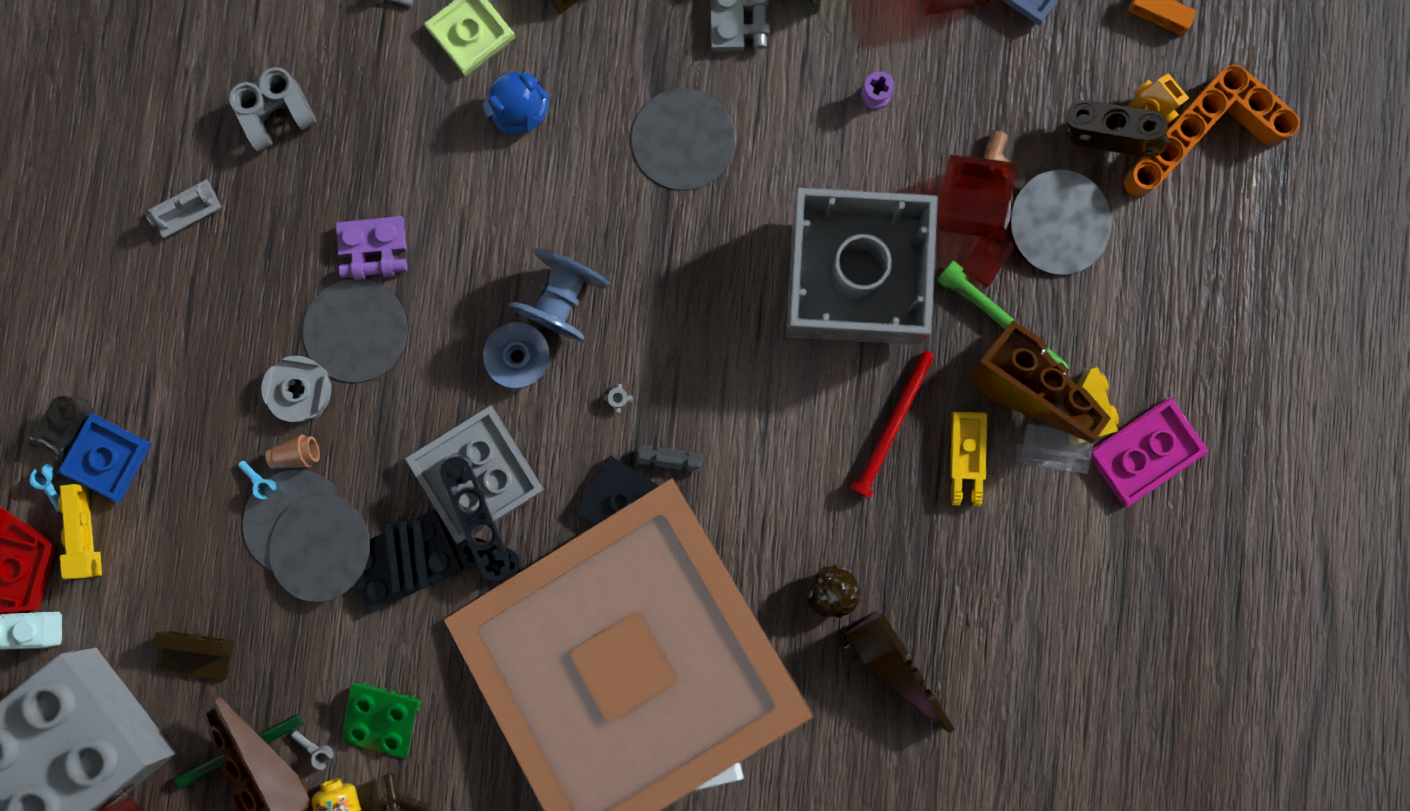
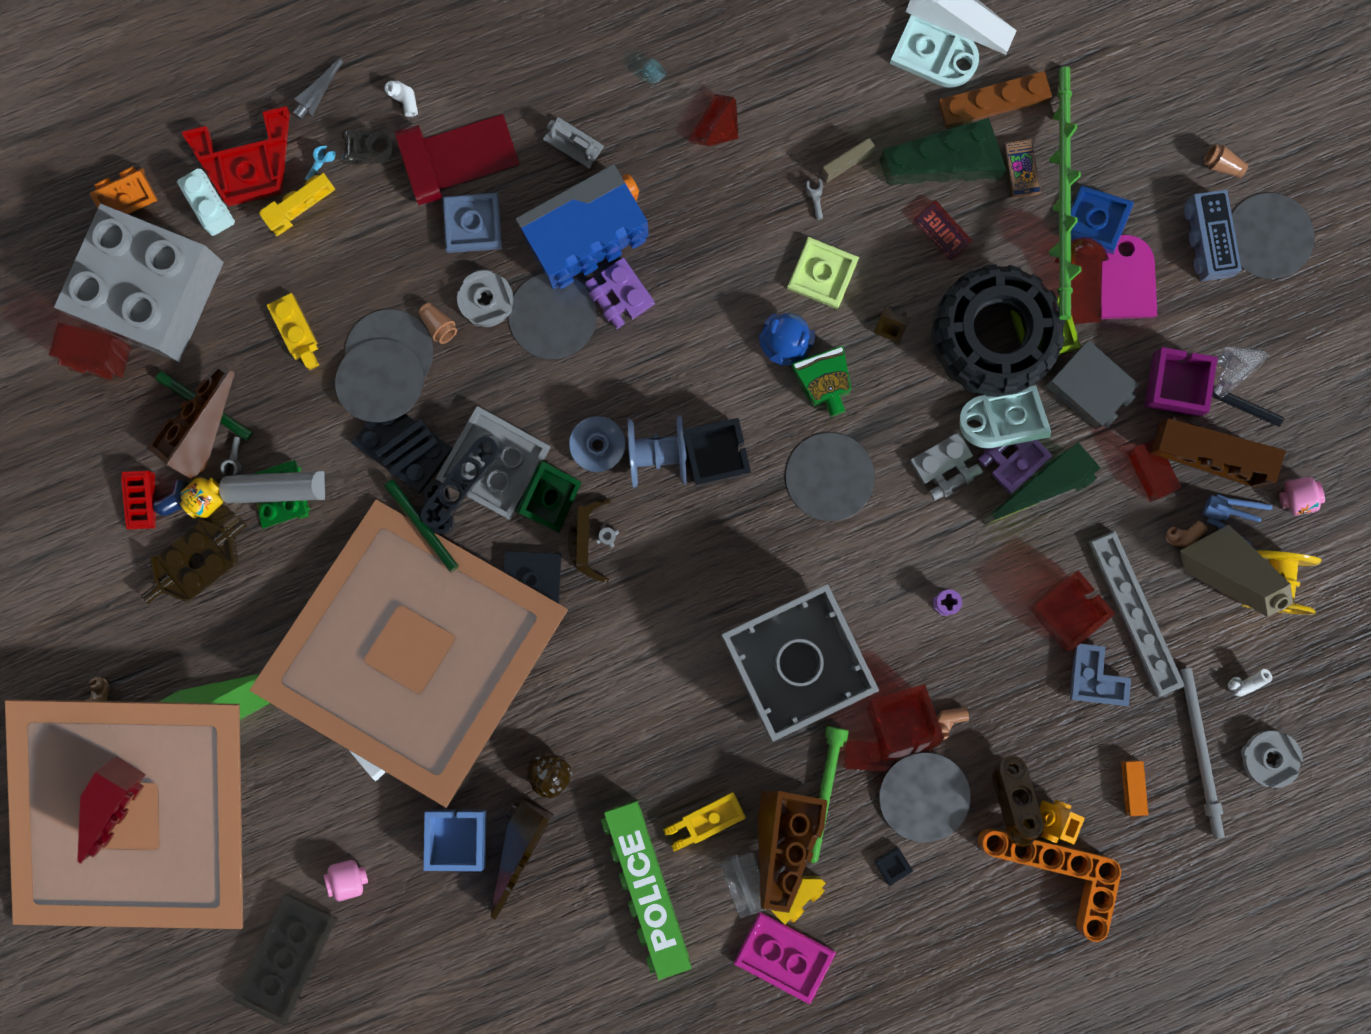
camera: 60 degrees right, 0 degrees up
(28, 358) = (403, 94): none -> white arm
(104, 457) = (361, 190): blue plate -> none
(126, 339) = (455, 155): none -> dark red piece
(157, 84) = (654, 71): none -> clear light blue hinge
(194, 654) = (255, 335): dark brown panel -> none
(207, 359) = (472, 222): none -> sand blue plate
(212, 609) = (294, 329): none -> yellow hinge
(250, 48) = (717, 123): none -> clear red slope
(256, 480) = (403, 308): medium azure hand -> none
(267, 101) = (665, 153): light grey piece -> none
(279, 242) = (585, 226): none -> blue piece
(368, 721) = (273, 487): none -> light grey brick
(503, 585) = (424, 530): none -> dark green bar
(543, 435) = (548, 496): none -> dark green slope
(580, 87) = (824, 379): none -> torso
(596, 238) = (715, 453): none -> black piece
(606, 425) = (579, 539): none -> dark brown piece
(669, 458) = (583, 599): dark grey axle -> none
(849, 727) = (455, 840): none -> medium blue piece
(863, 486) = (699, 752): red bar -> none
(1006, 553) = (648, 890): none -> bright green brick
(1113, 292) = (893, 866): none -> black tile

